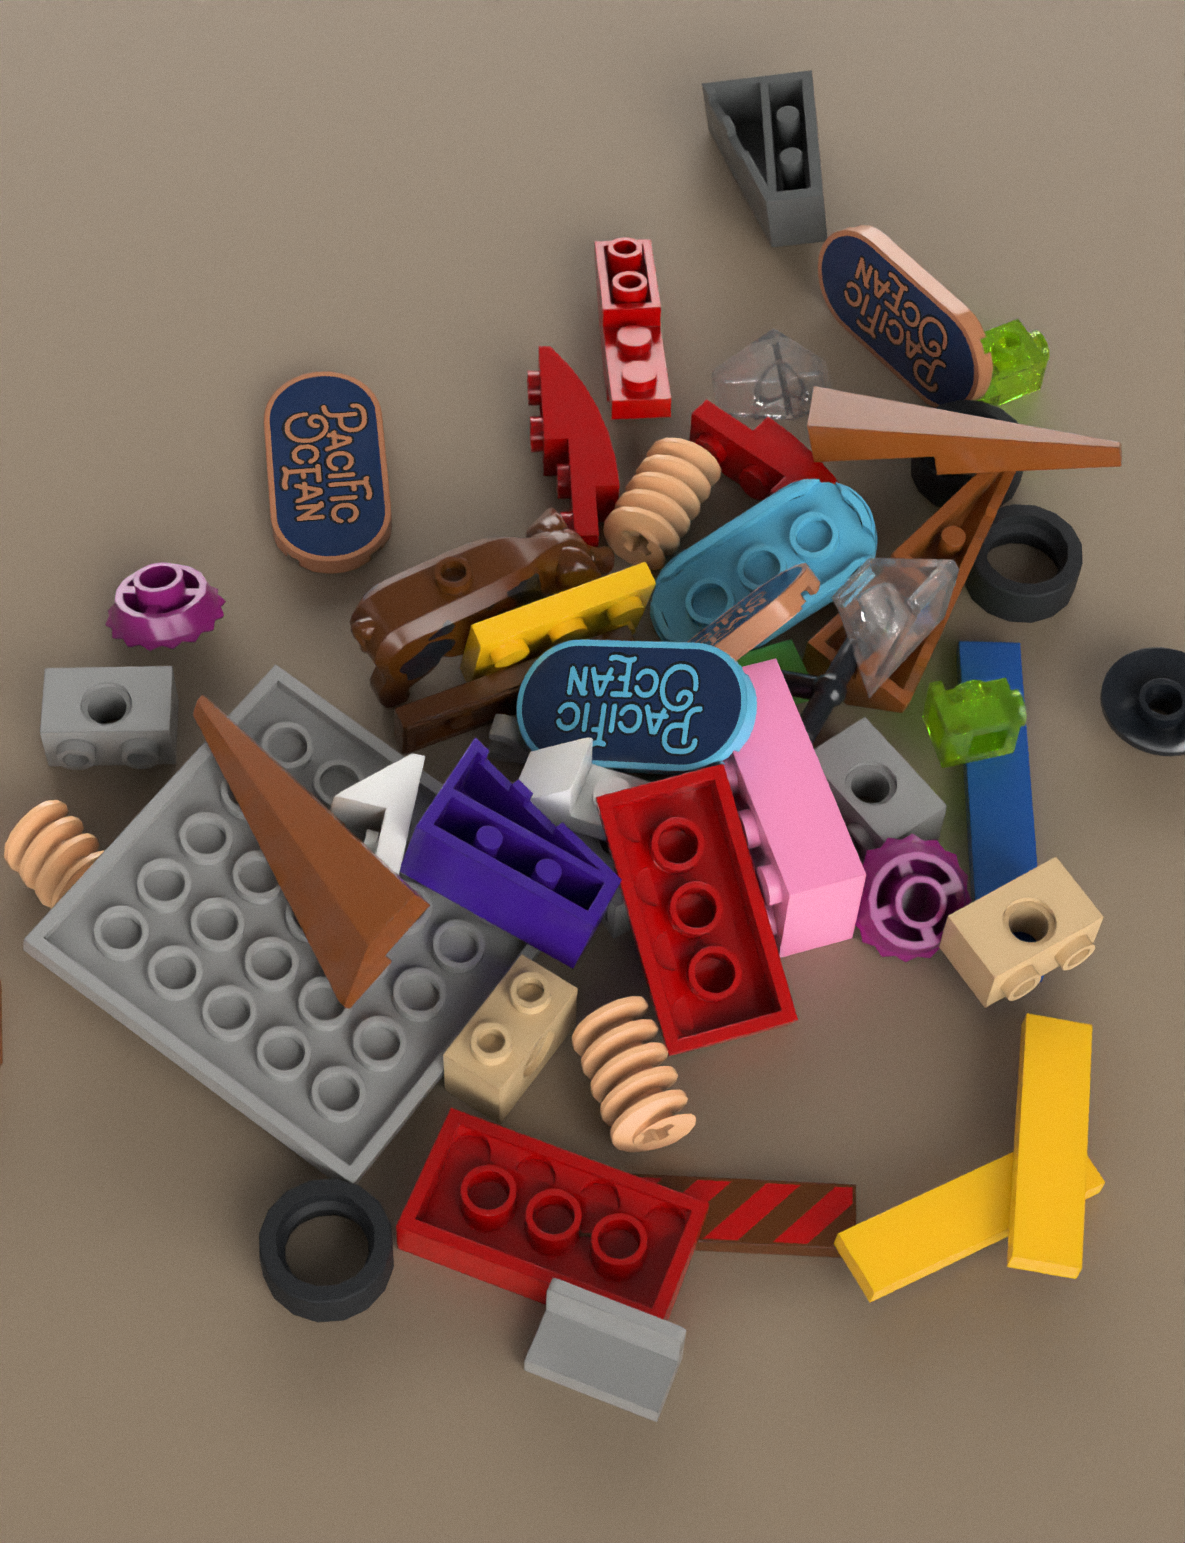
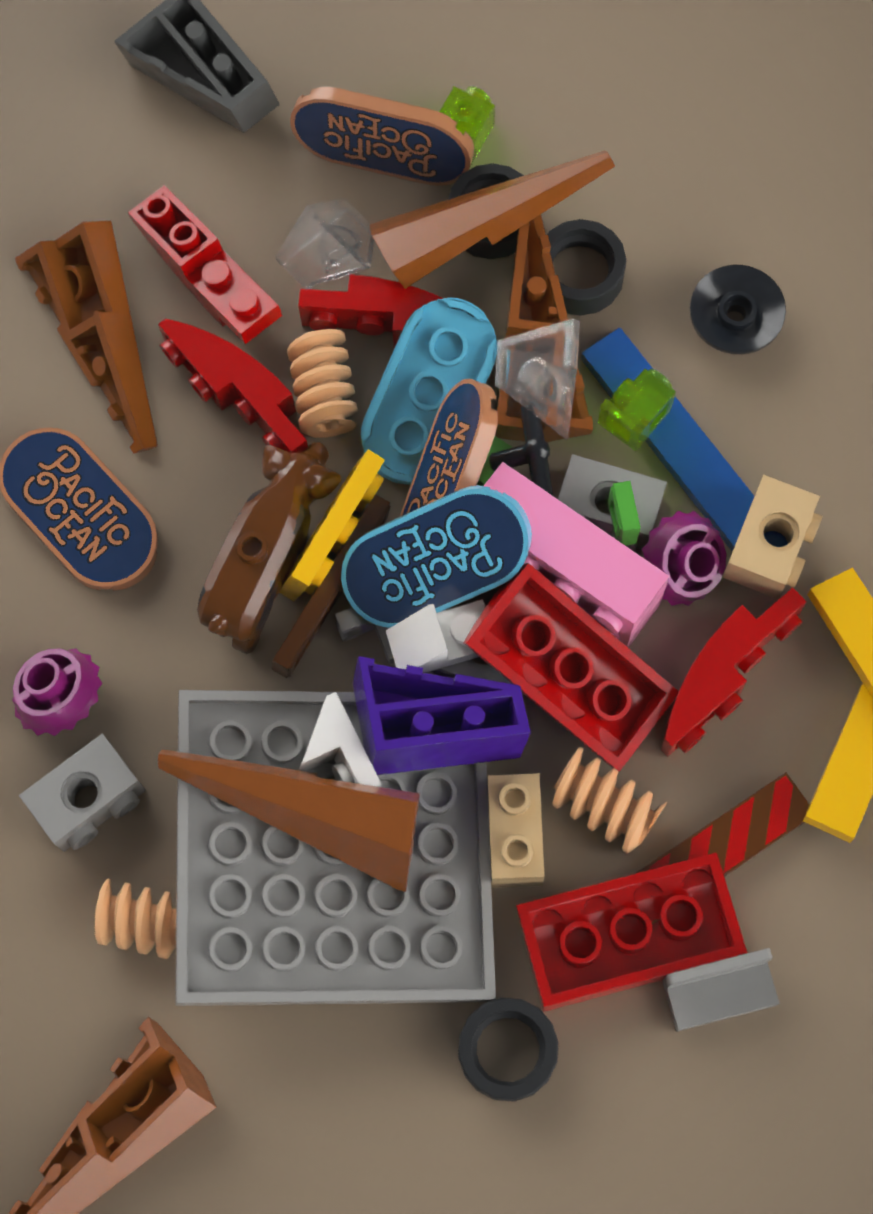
camera: 30 degrees left, 15 degrees up
(494, 293) = (88, 295): none -> dark orange wedge
(845, 1034) = (713, 679): none -> red slope
(870, 795) = (624, 513): none -> bright green tile

